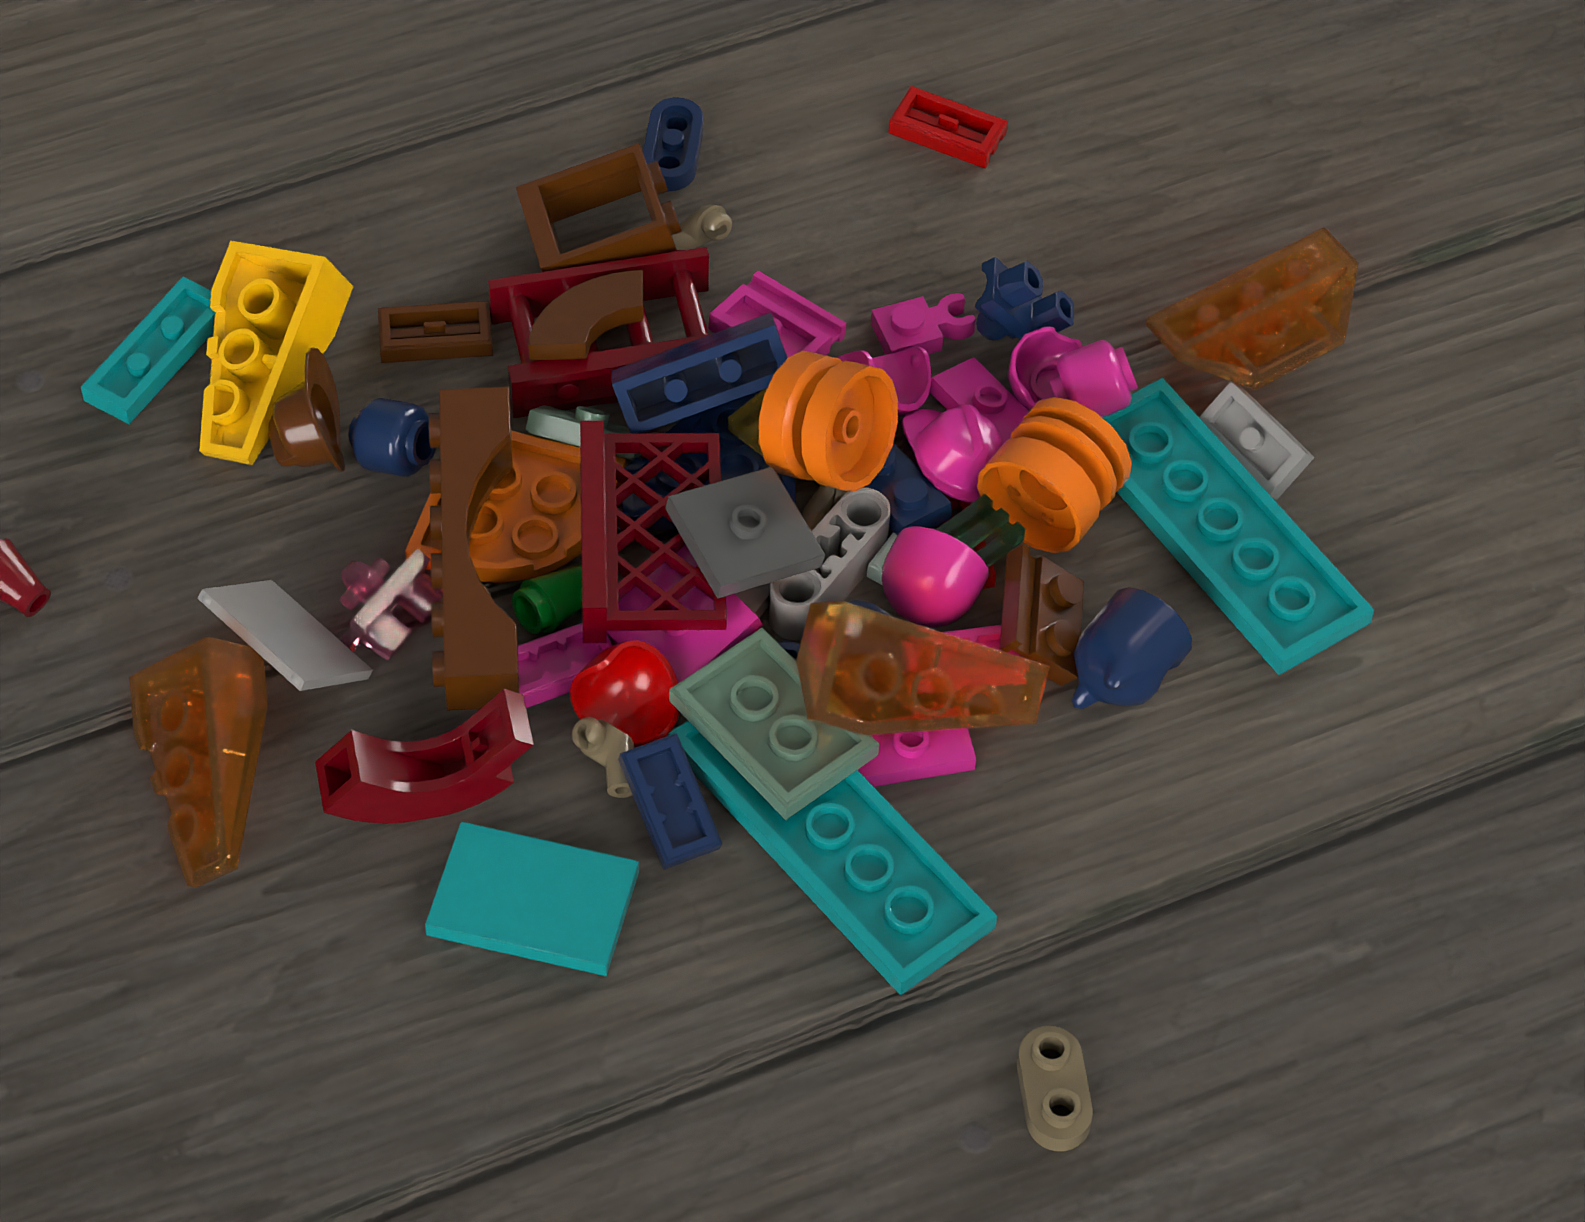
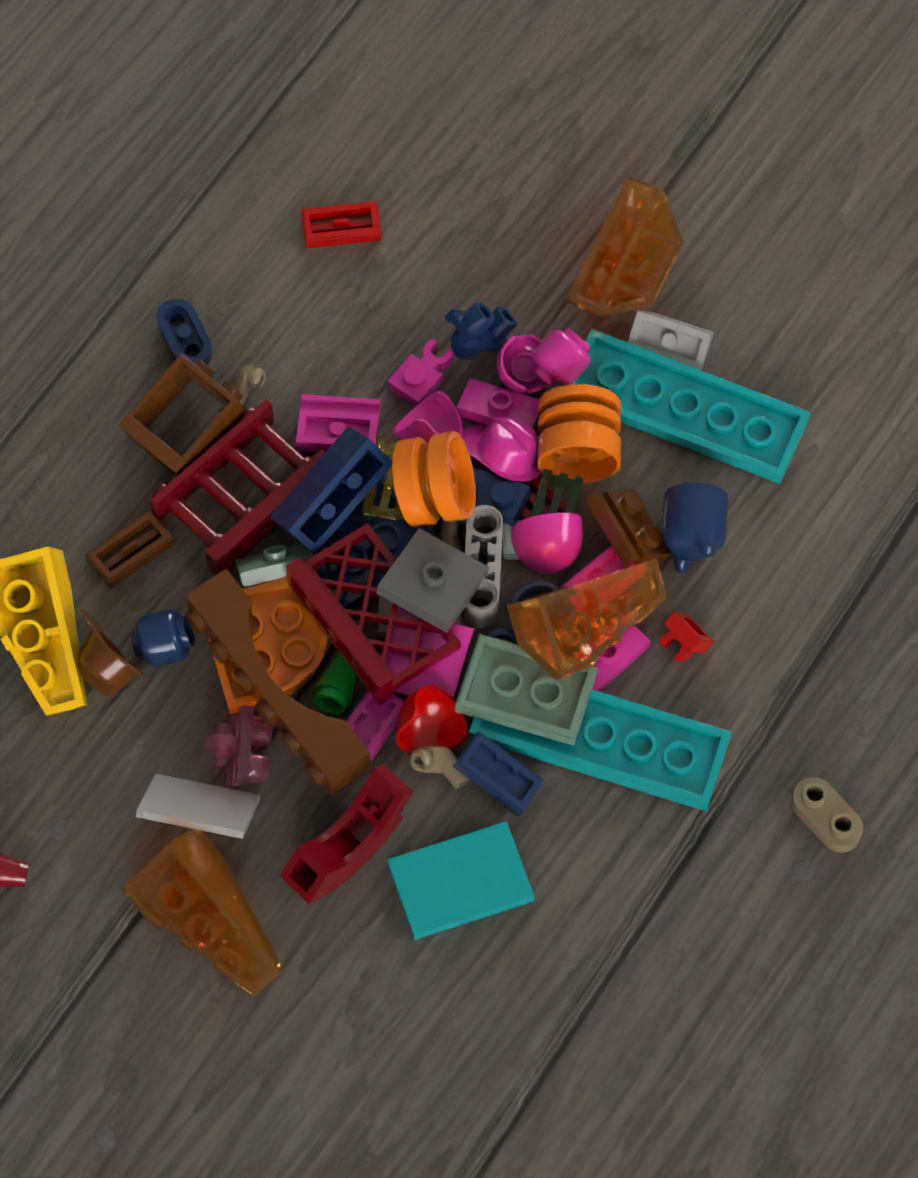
camera: 30 degrees left, 10 degrees up
(585, 312) = (227, 488): reddish brown tile -> none
(1028, 777) = (688, 633): none -> red tile

